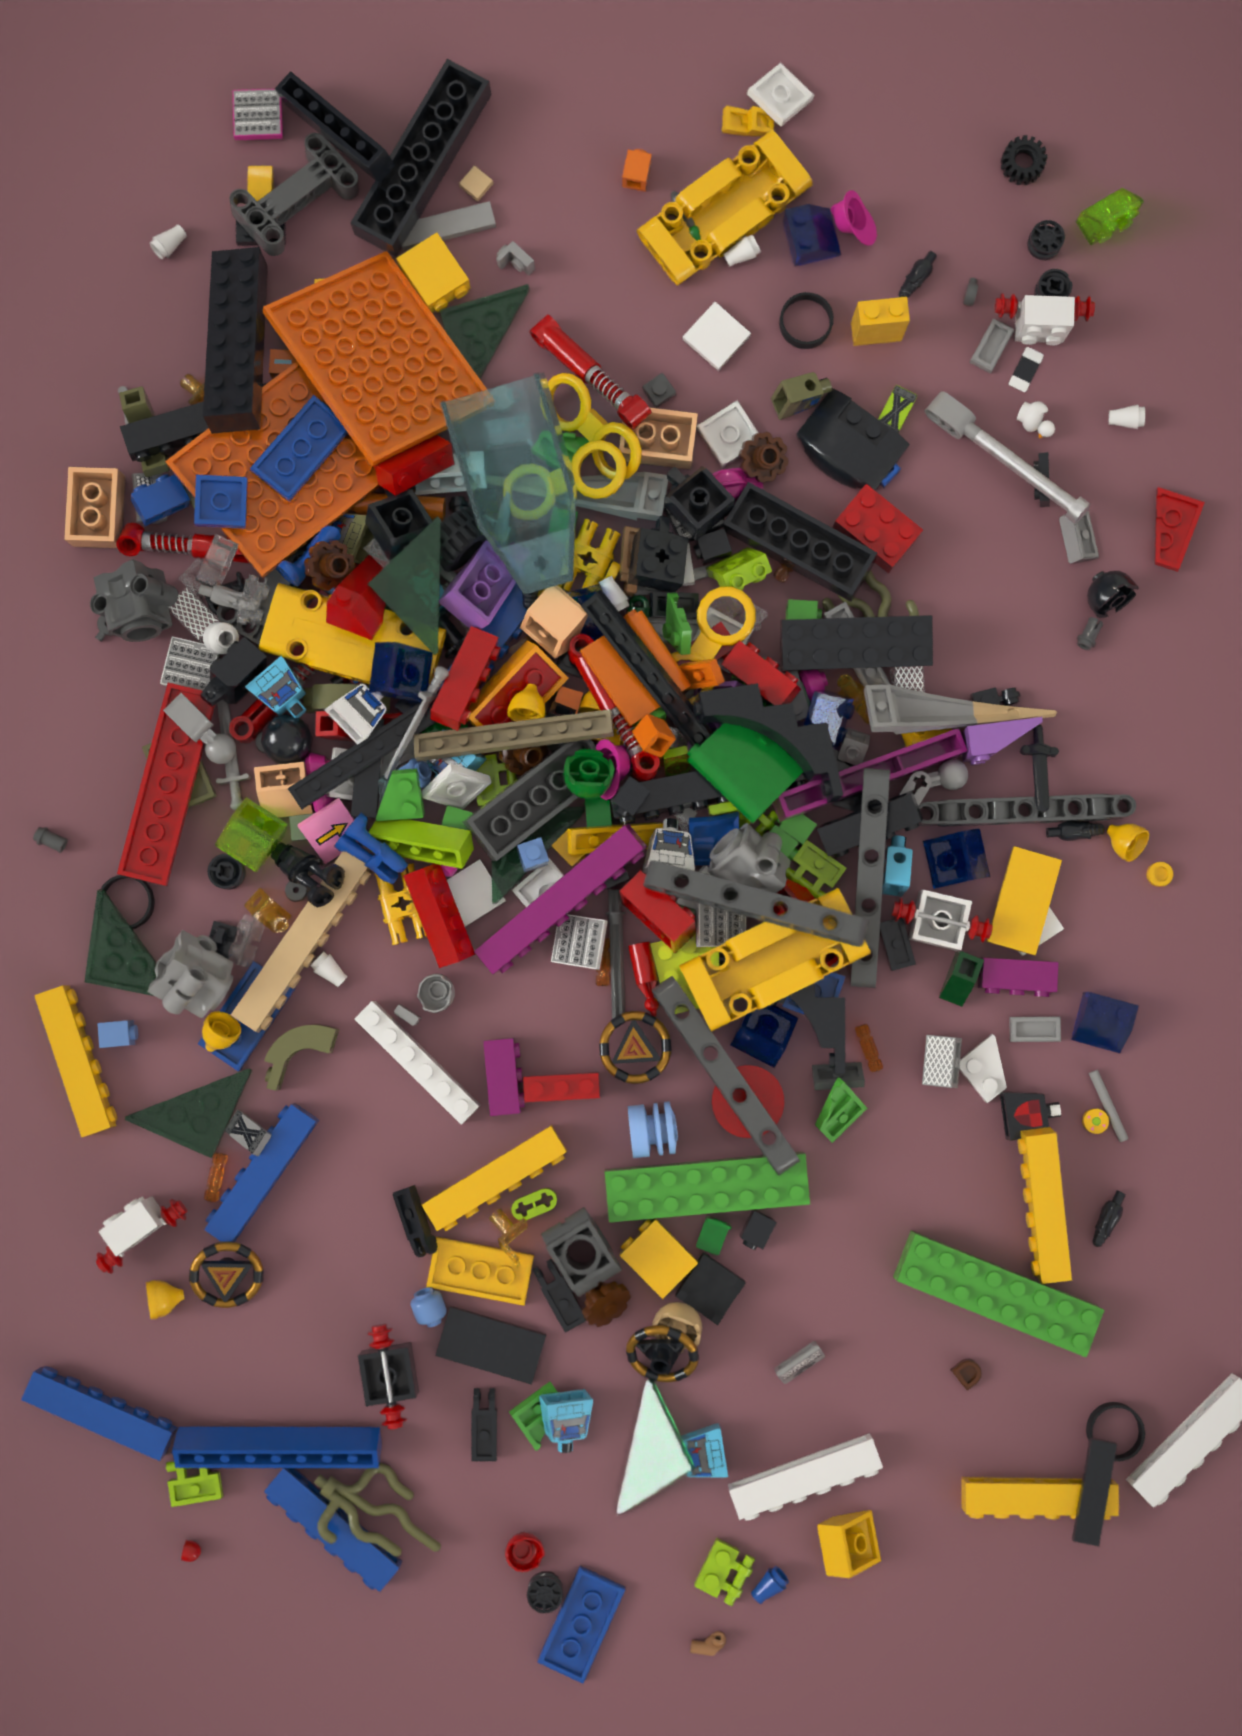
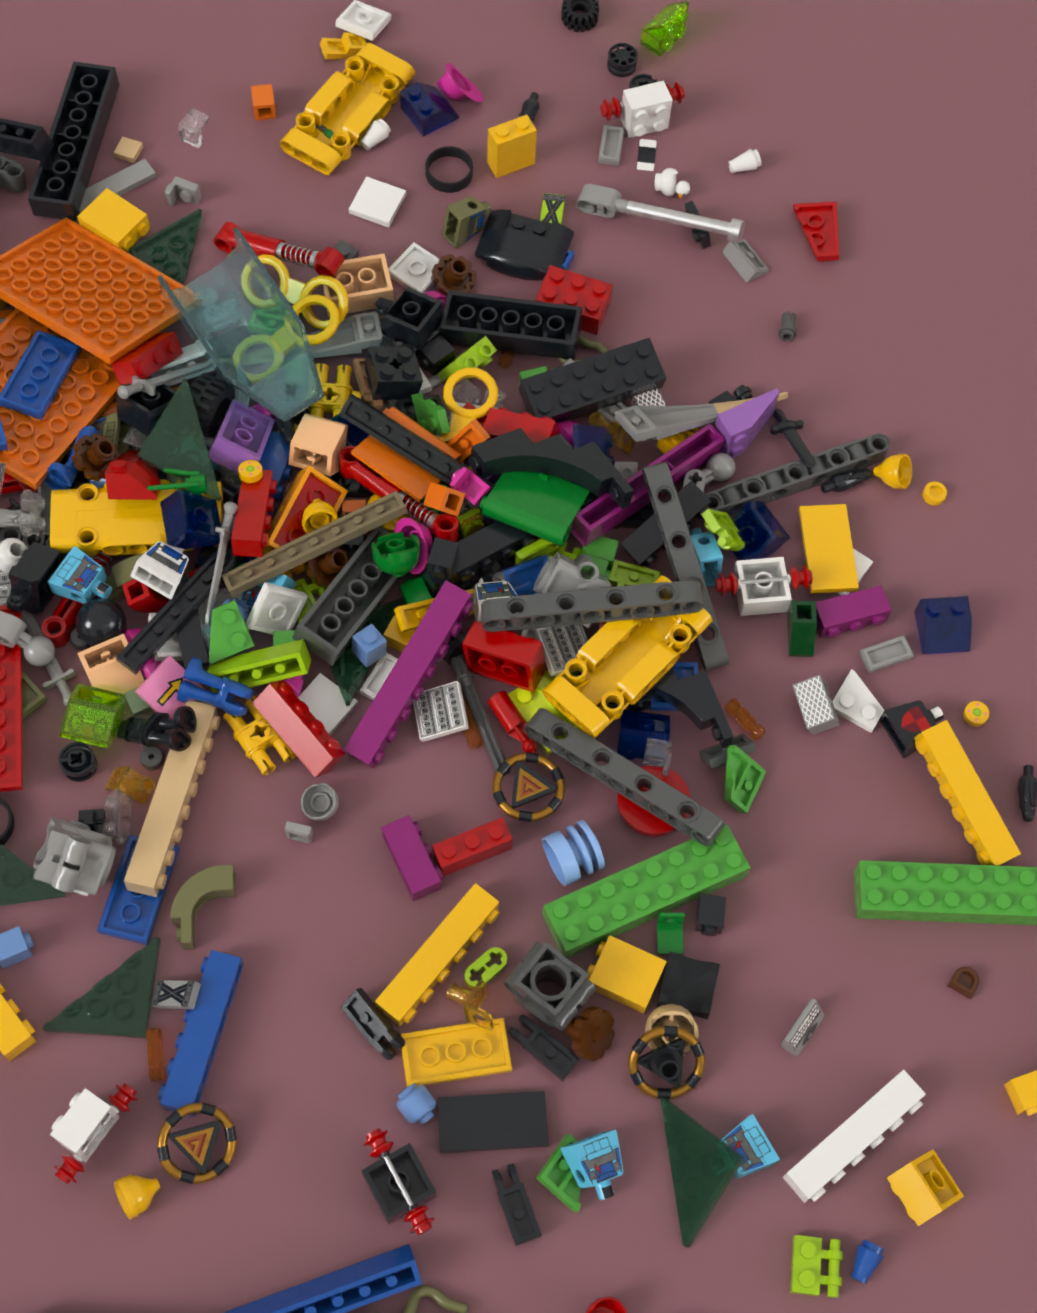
camera: 25 degrees left, 20 degrees down
(220, 1030) = (116, 905): yellow helmet -> none
(328, 969) = (206, 817): white cone -> none
(403, 502) = (149, 385): none -> light grey sword
(414, 636) = (196, 483): none -> green plant
(417, 1062) = (324, 871): white brick -> none
(475, 634) = (250, 471): none -> yellow tile
(551, 179) = (191, 127): none -> clear panel
(685, 729) = (470, 484): none -> dark pink bracket
(769, 1062) = (658, 754): none -> clear panel
(896, 944) = (733, 622): black plate -> none
(925, 848) = (721, 524): none -> lime plate
(971, 292) = (577, 112): dark grey piece -> none
(1108, 1105) = (981, 697): light grey bar -> none
(1110, 591) = (791, 288): black cylinder -> none

